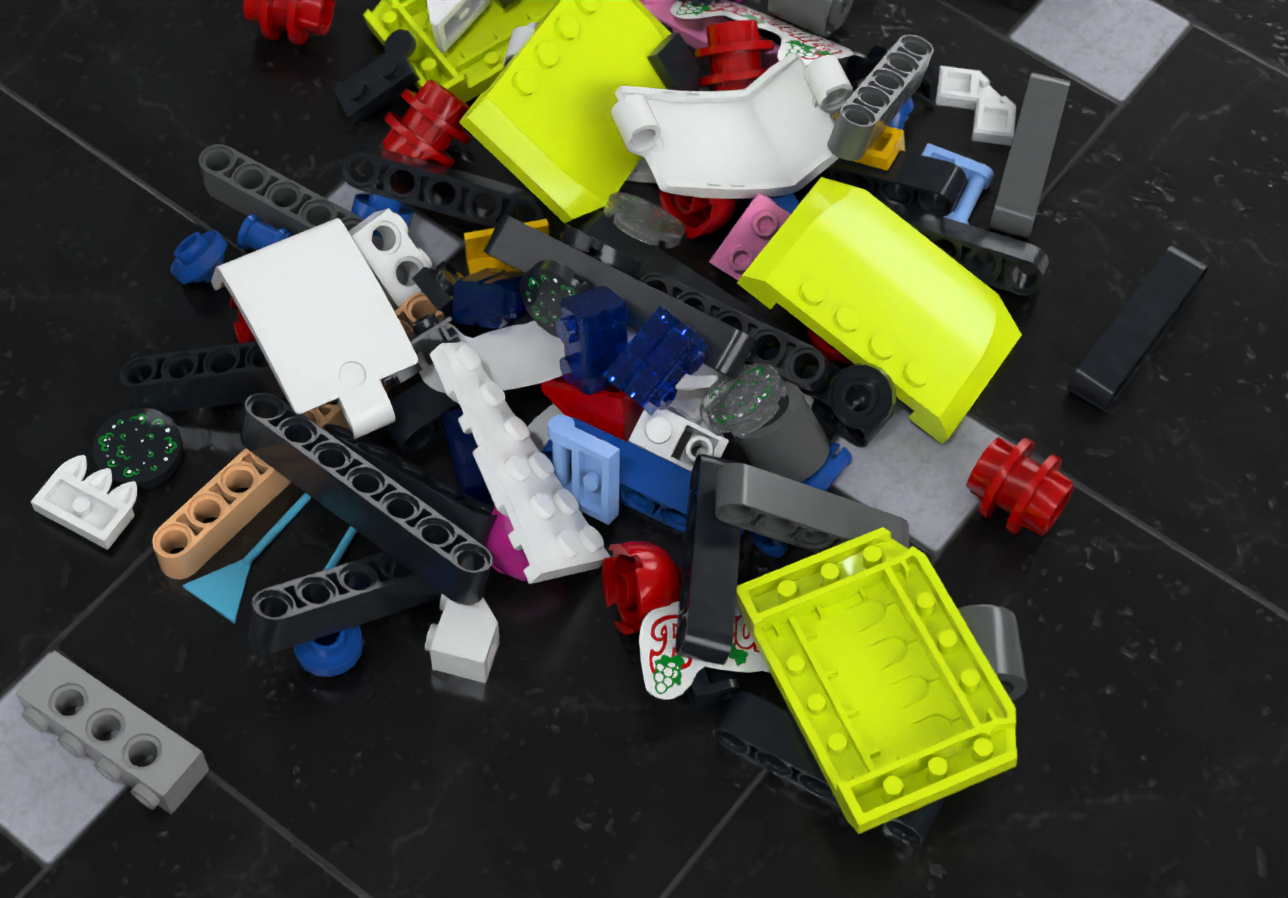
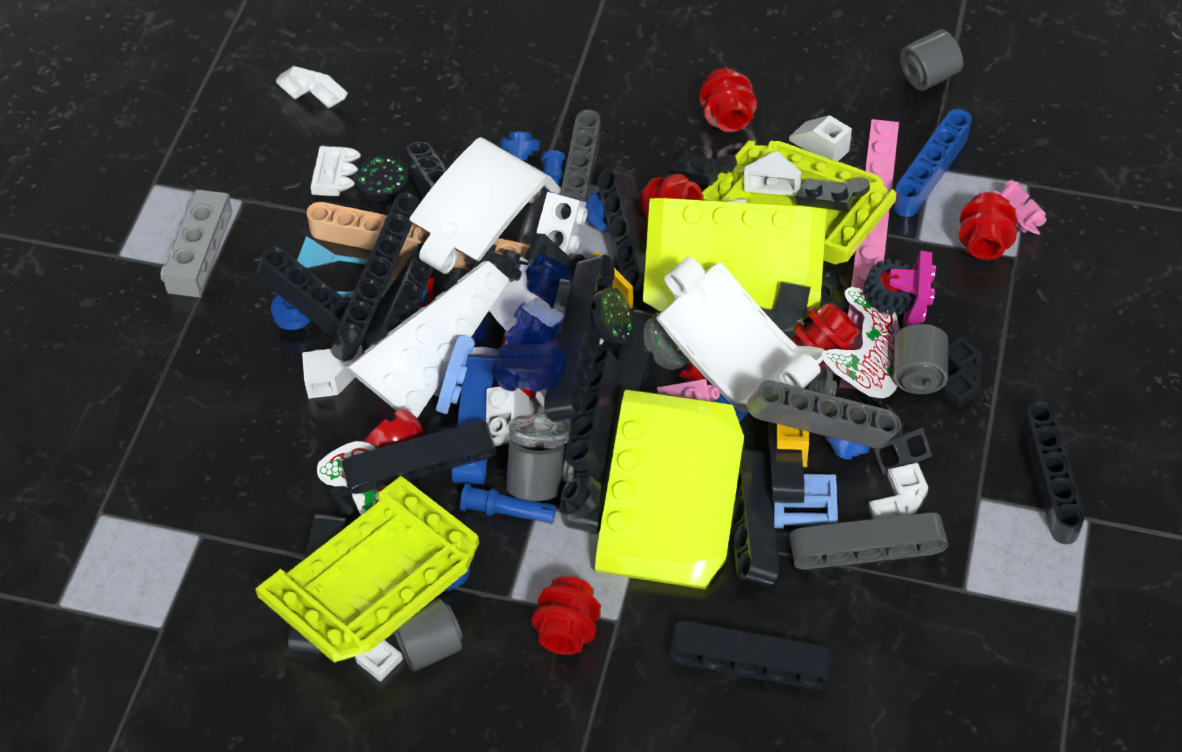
camera: 70 degrees right, 5 degrees down
(796, 511) = (474, 501): dark grey beam -> none

